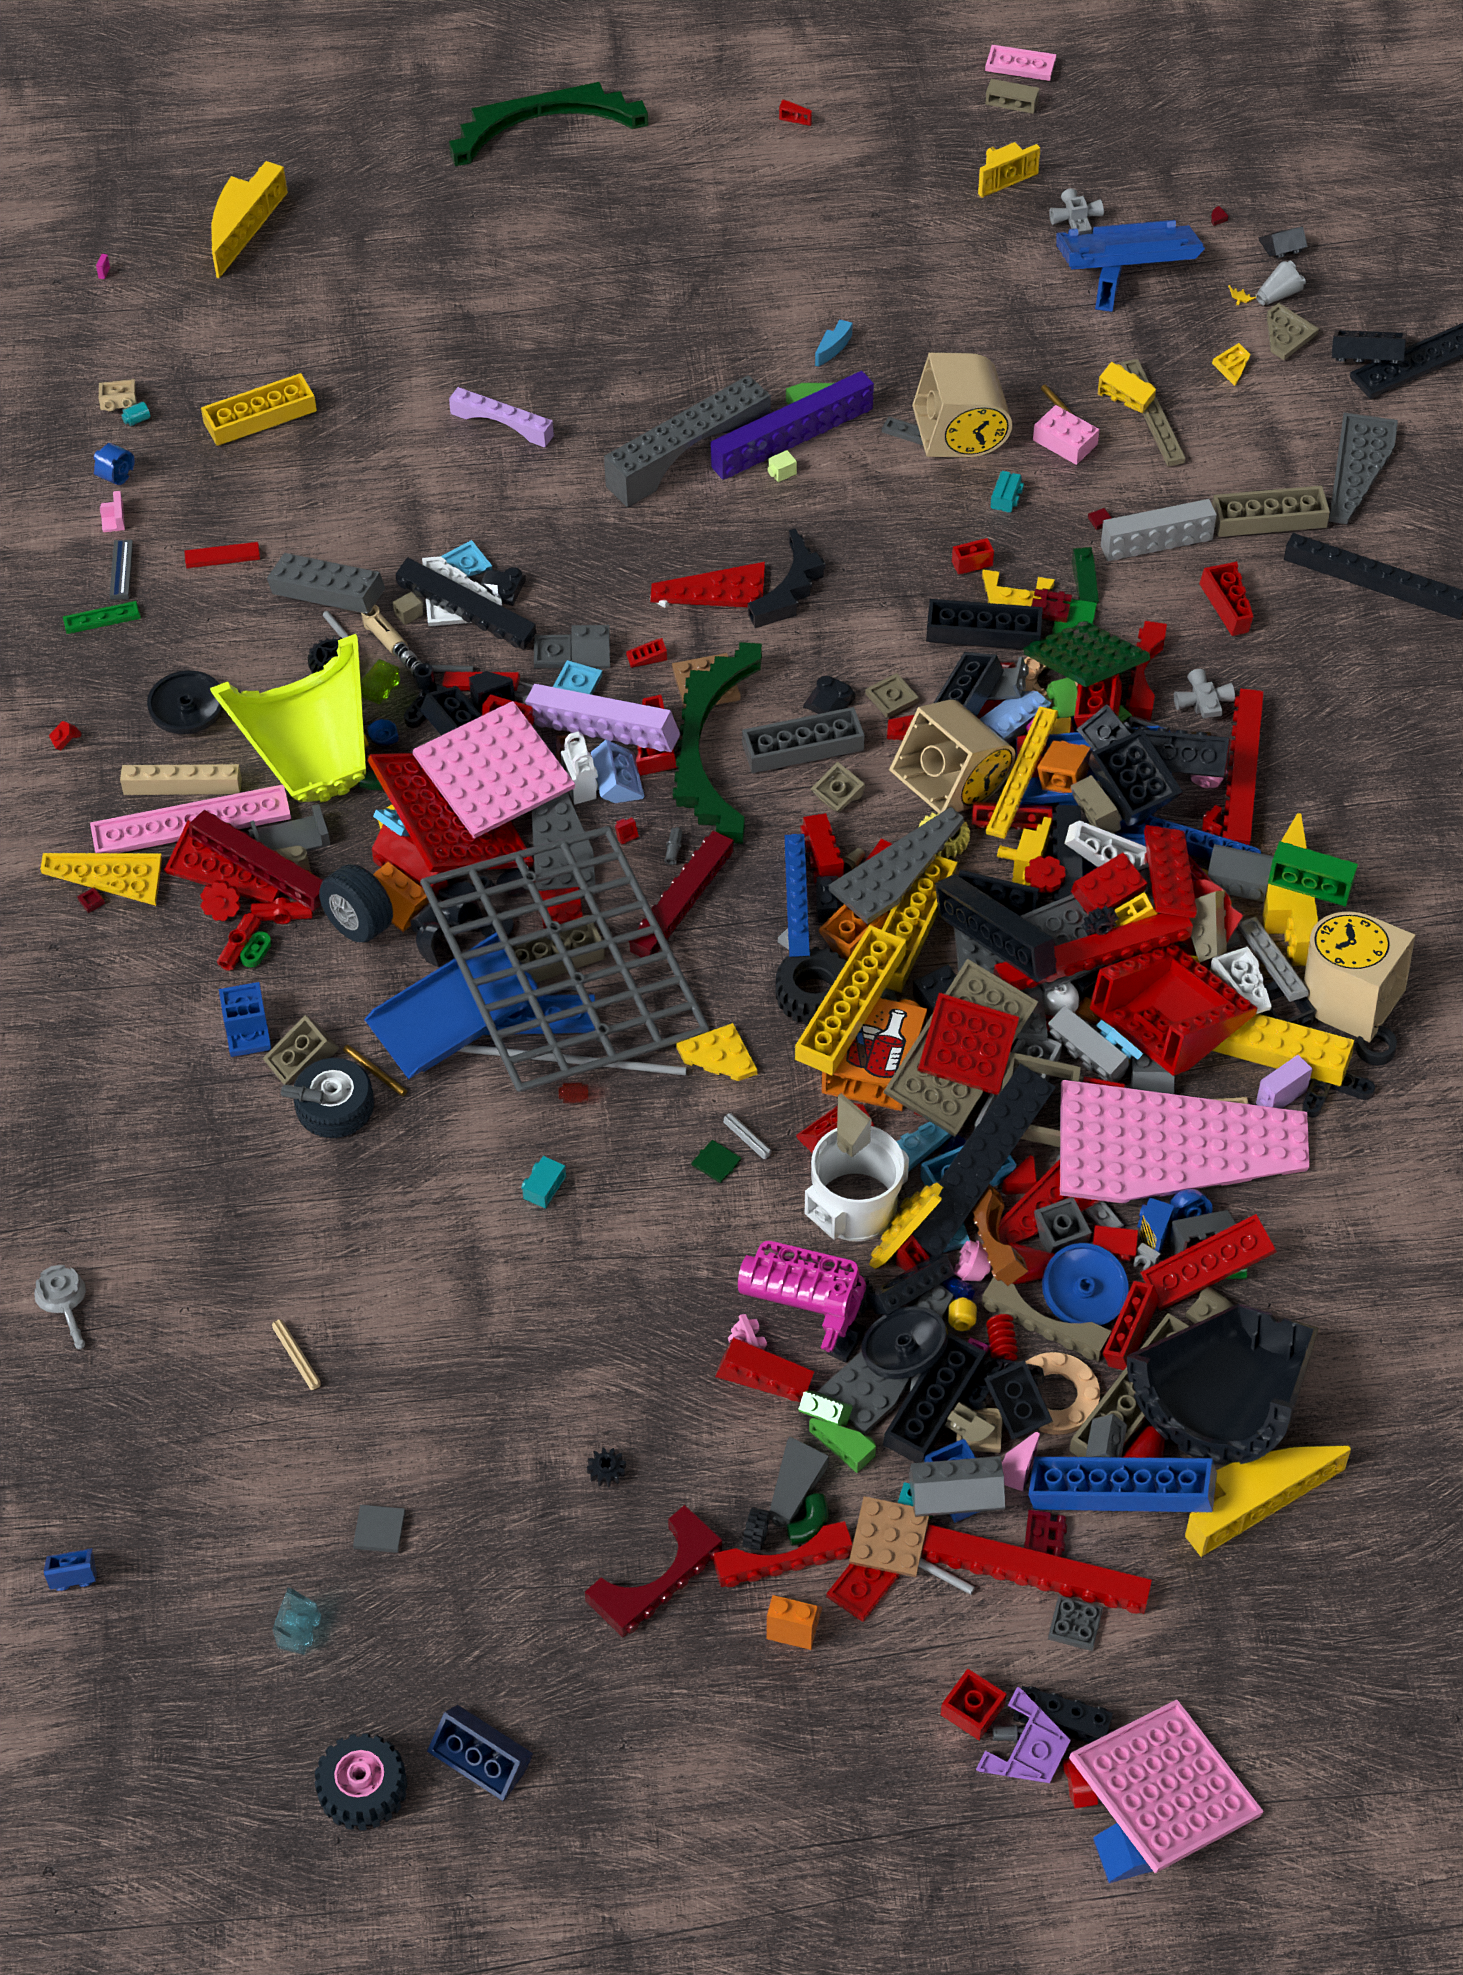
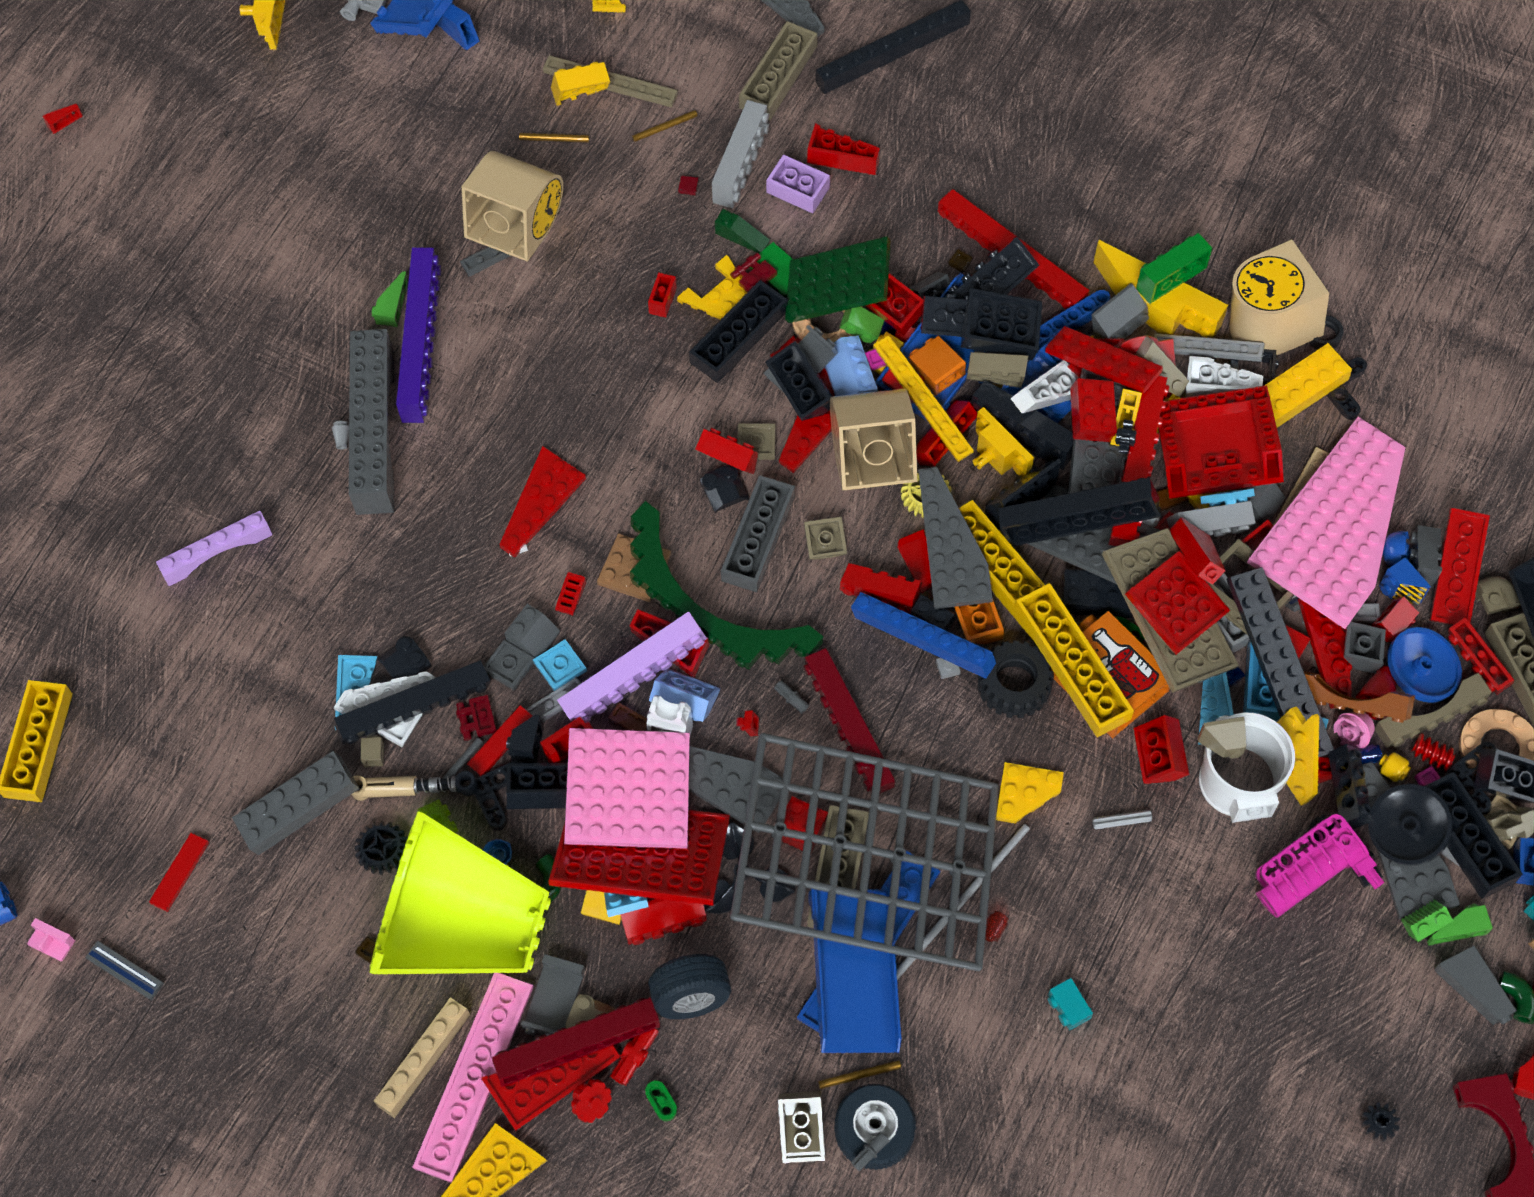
camera: 55 degrees left, 10 degrees up
(63, 734) = (288, 1133): red plate -> none
(101, 617) = (168, 1021): green tile -> none
(184, 702) = (337, 1002): black dish -> none
(243, 932) = (651, 1121): red piece -> none
(244, 1019) = (740, 1154): blue bracket -> none
(335, 625) = (348, 823): light grey bar -> none
(405, 895) = (688, 940): orange slope -> none
(429, 929) = (737, 936): black piece -> none
(494, 656) = (482, 717): none -> dark red plate
(716, 1161) = (1129, 858): dark green piece -> none
(746, 1330) = (1319, 939): bright pink hips -> none
(756, 1528) = (1509, 1040): black tyre -> none
(763, 1371) = (1363, 946): red wedge -> none
(782, 466) = (450, 369): yellowish green brick -> none
(783, 600) = (587, 437): black arch -> none
(833, 342) = (345, 249): dark azure slope -> none
(853, 860) = (902, 570): dark tan cone -> none
(857, 674) = (728, 450): none -> red slope
(1006, 491) = (611, 230): teal brick -> none
(1035, 1033) = (1198, 550): none -> red slope
(1045, 874) = (1037, 446): red plant -> none
(1066, 434) = (586, 152): bright pink brick -> none
(1142, 697) = (840, 229): red arch -> none
(1145, 472) = (664, 126): none -> pearl gold bar
(1146, 1256) = (1422, 605): light grey tile -> none
(1167, 585) = (798, 183): none -> lavender brick
(1204, 696) = (925, 230): light grey brick -> none
(1210, 821) = (1048, 307): red bracket -> none
(1284, 1084) = (1330, 415): lavender brick -> none

